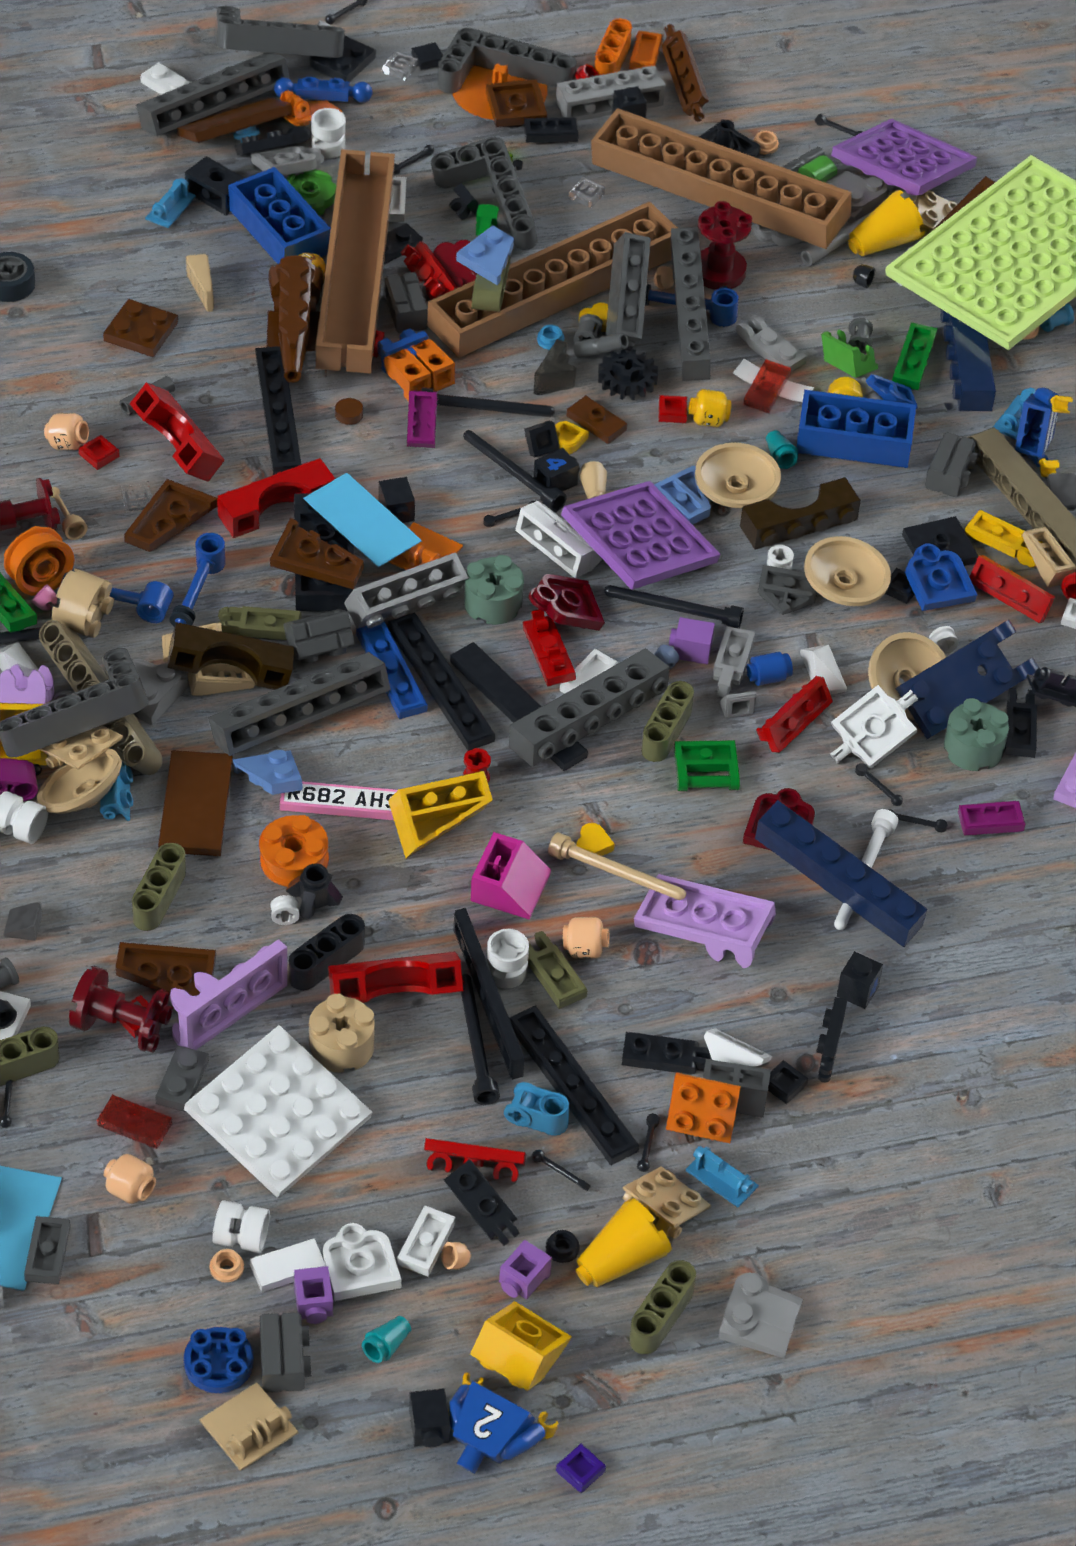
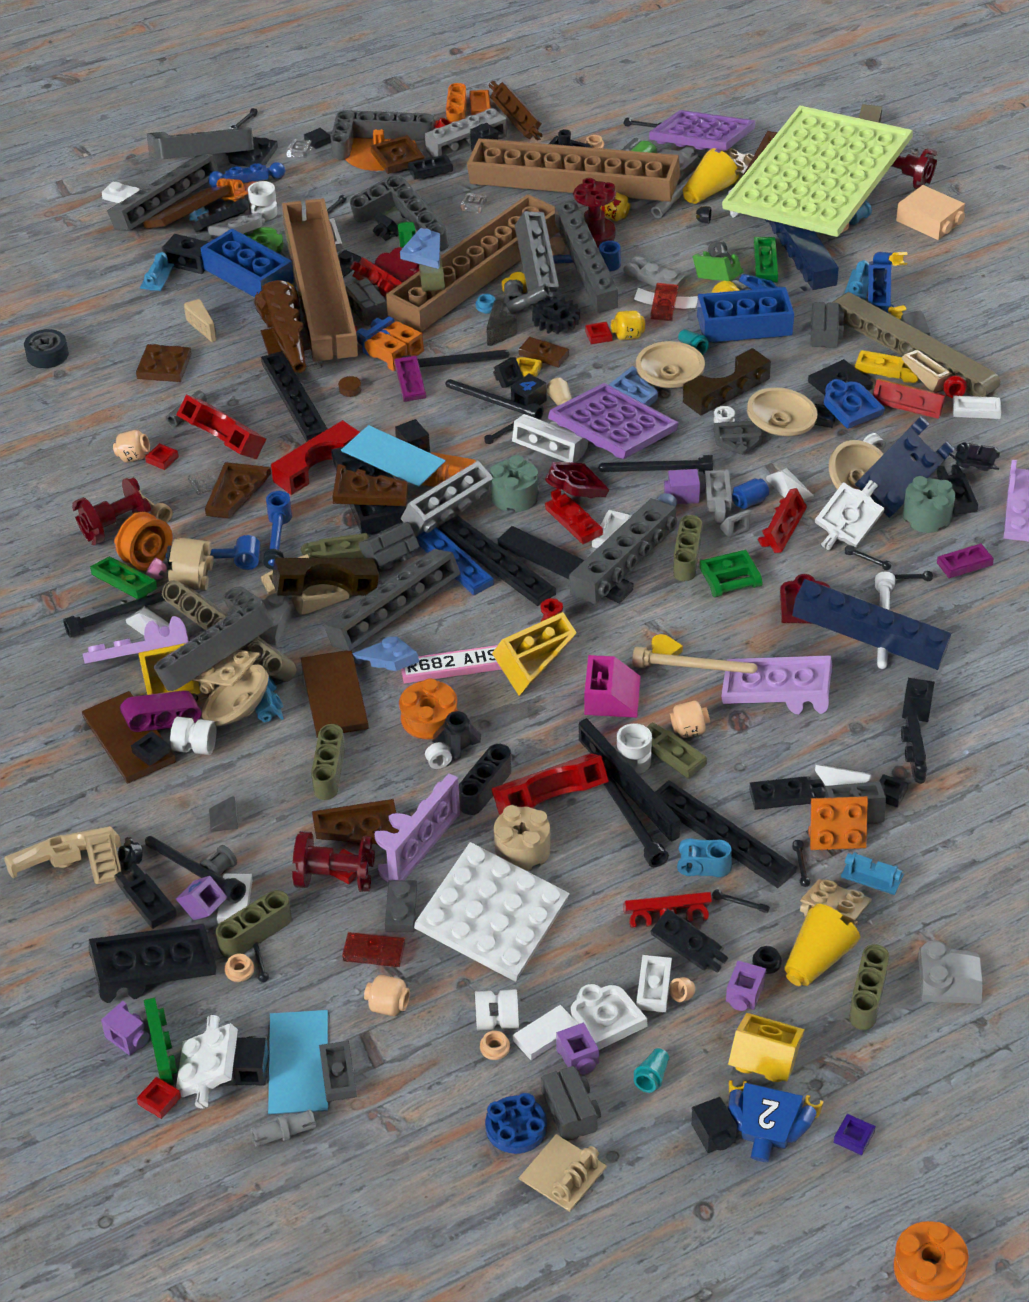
camera: 10 degrees left, 5 degrees down
(759, 241) = (617, 208): none -> yellow head

